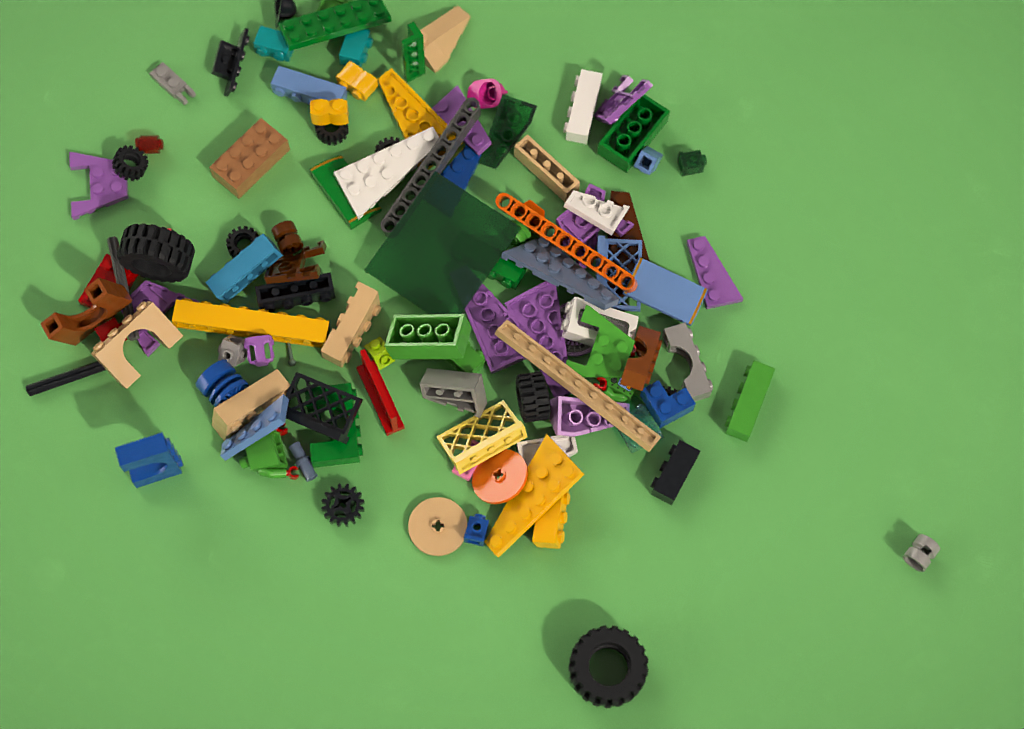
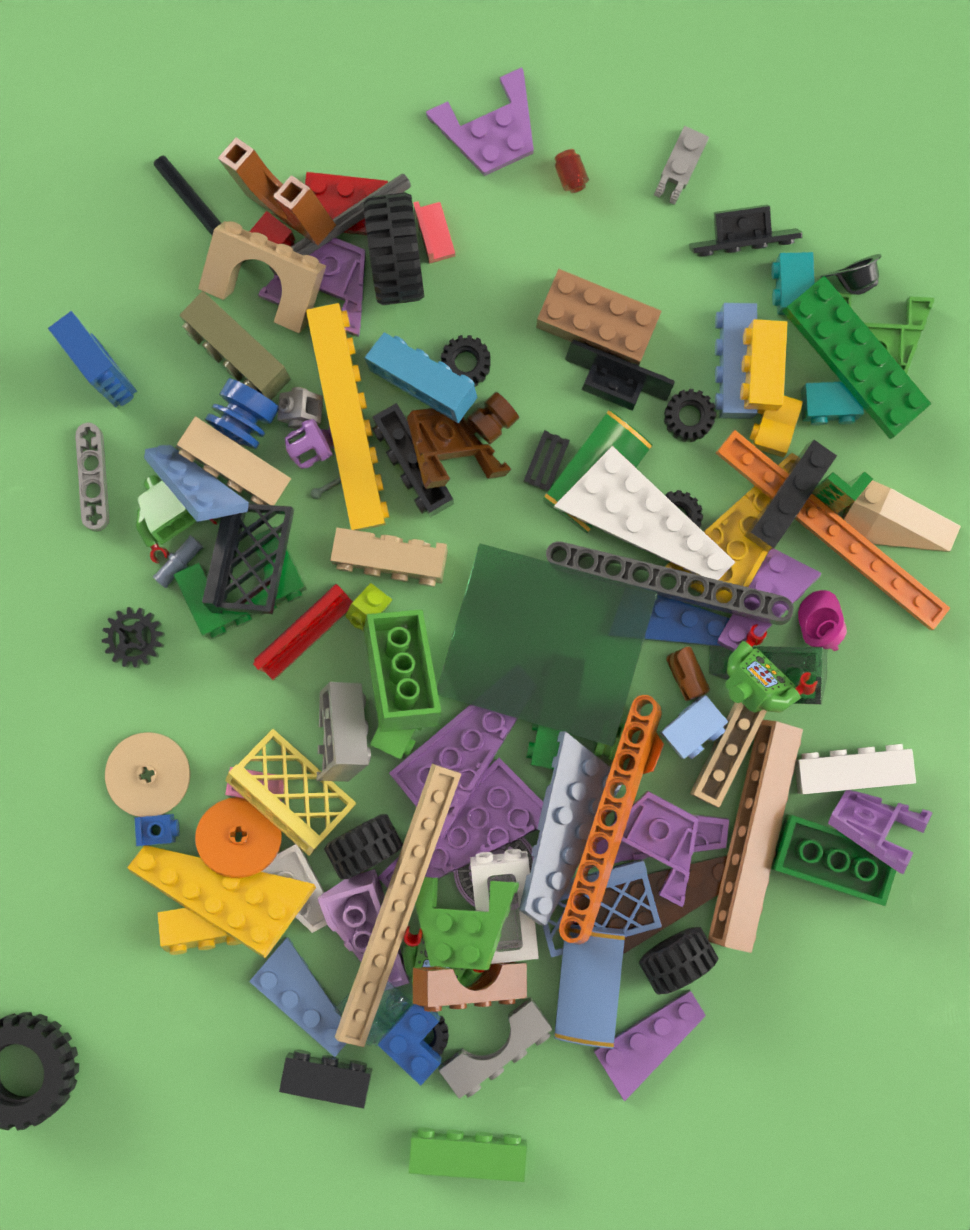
camera: 75 degrees right, 15 degrees up
(126, 170) = (514, 157): black tyre -> none
(173, 376) = (235, 346): none -> olive brick
(222, 504) = (89, 477): none -> light grey beam
(290, 160) = (617, 378): none -> black bracket
(315, 208) = (554, 440): none -> black tile
(319, 70) = (764, 365): none -> yellow brick
(326, 112) = (700, 399): yellow brick -> none
(415, 95) = (791, 496): none -> black arch
(432, 70) = (837, 534): none -> orange plate
(491, 178) = (687, 673): none -> dark orange arm
(511, 133) = (759, 682): none -> bright green torso
(524, 179) = (693, 727): none -> light blue brick
(597, 212) = (677, 849): white wing -> none
(605, 171) = (755, 836): none -> brick
(615, 474) = (299, 995): none -> medium blue wing
(648, 160) = (796, 896): medium blue brick -> none
(665, 235) = (678, 960): none -> black tyre
(688, 164) = (811, 954): clear green brick -> none

